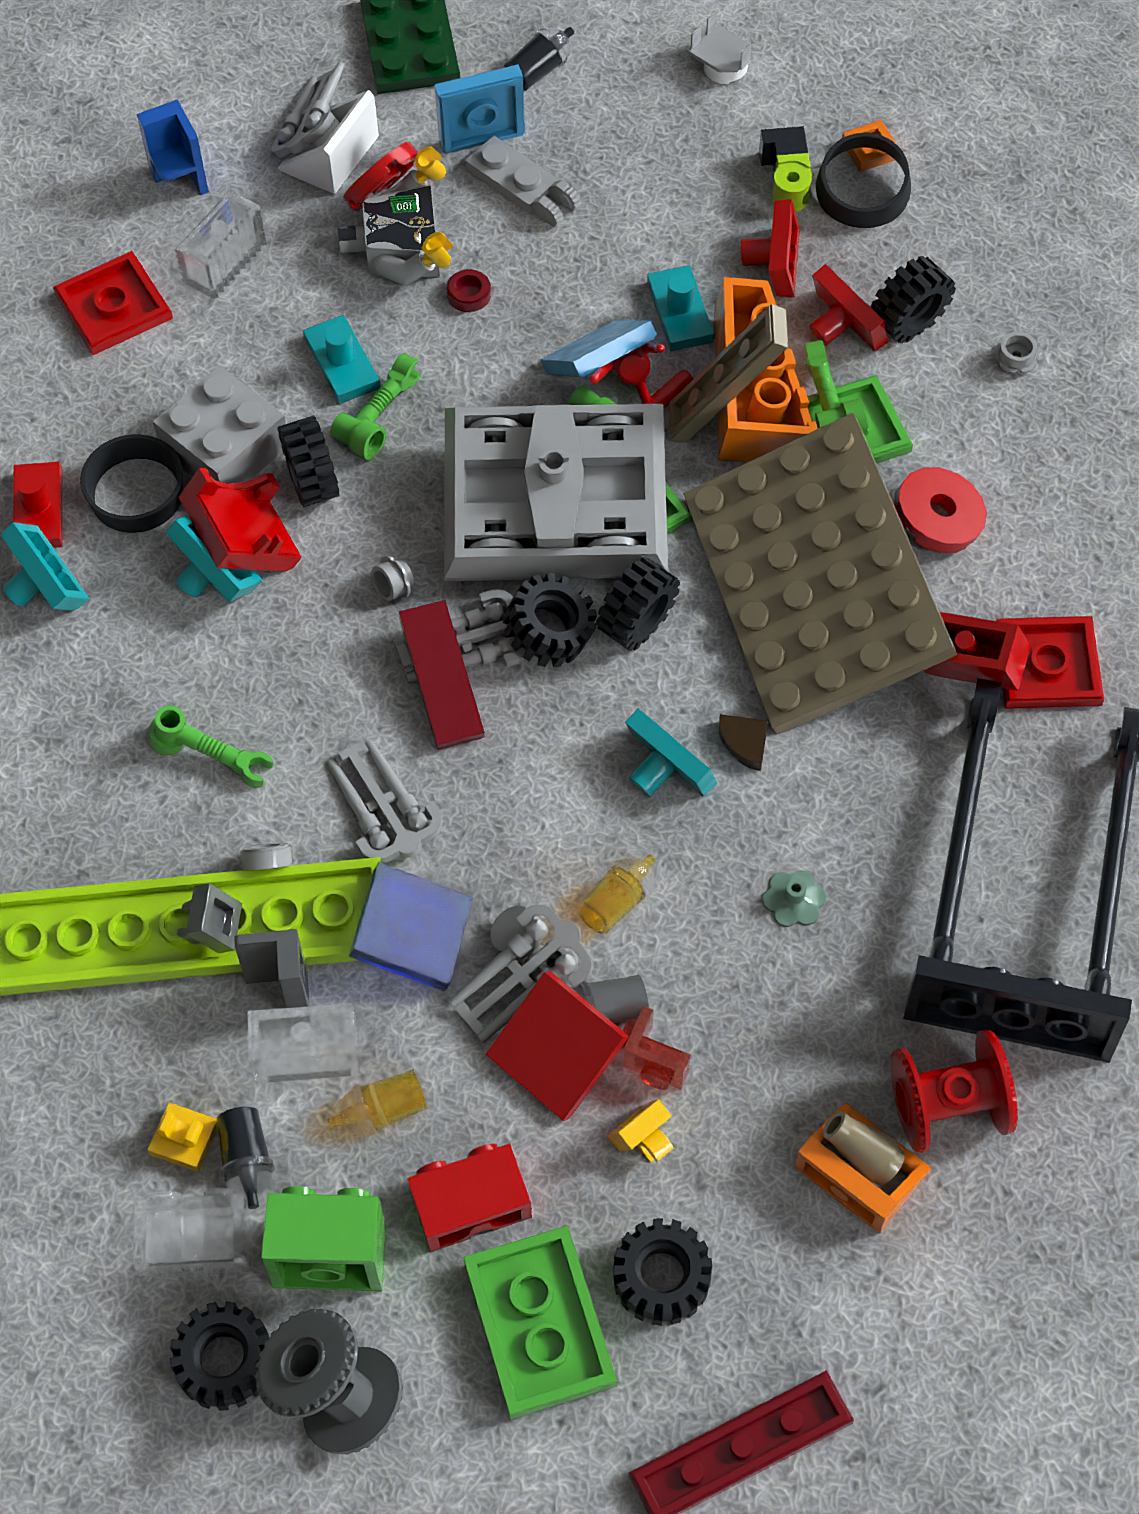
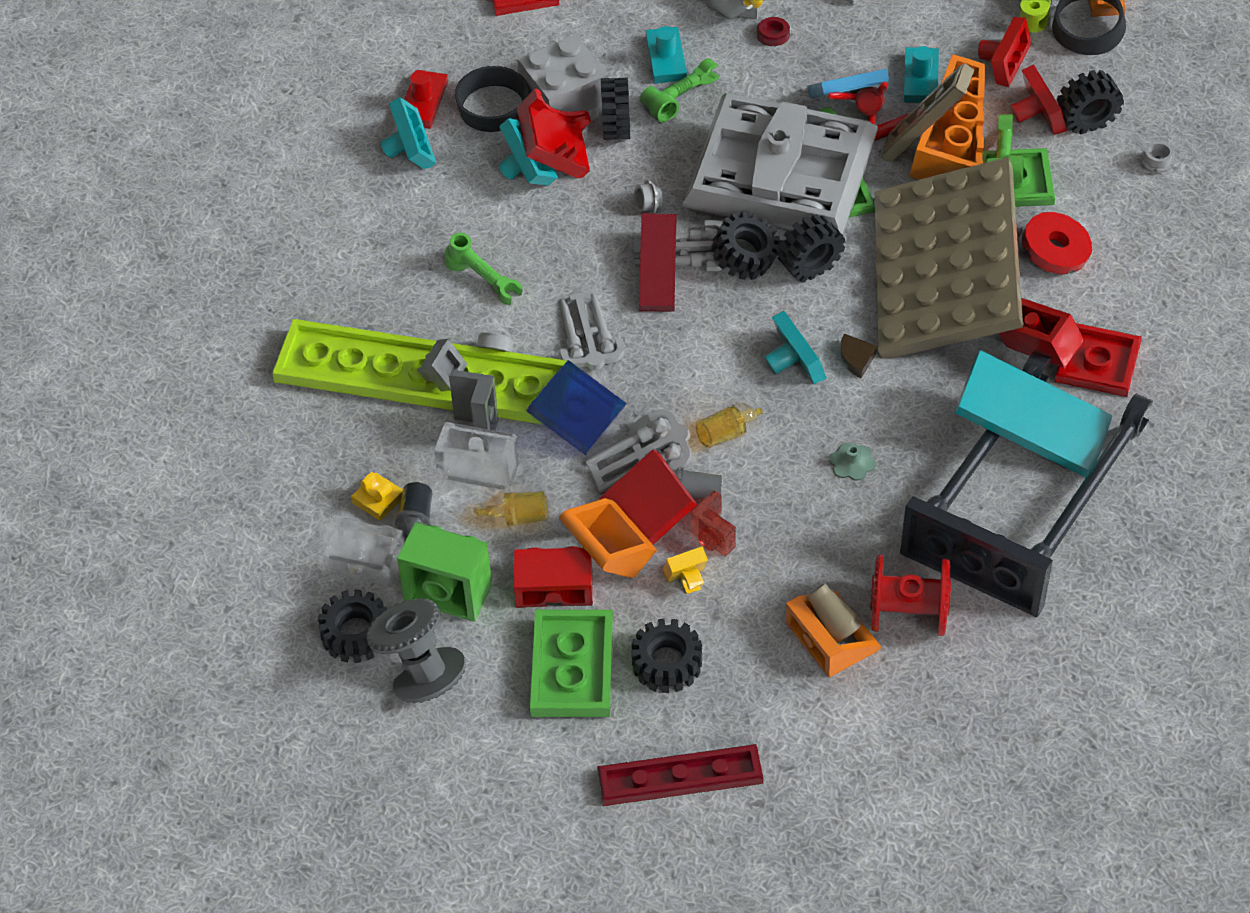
camera: 20 degrees right, 10 degrees down
(530, 1108) = (609, 537): none -> orange tile
(1008, 773) = (1033, 414): none -> teal tile

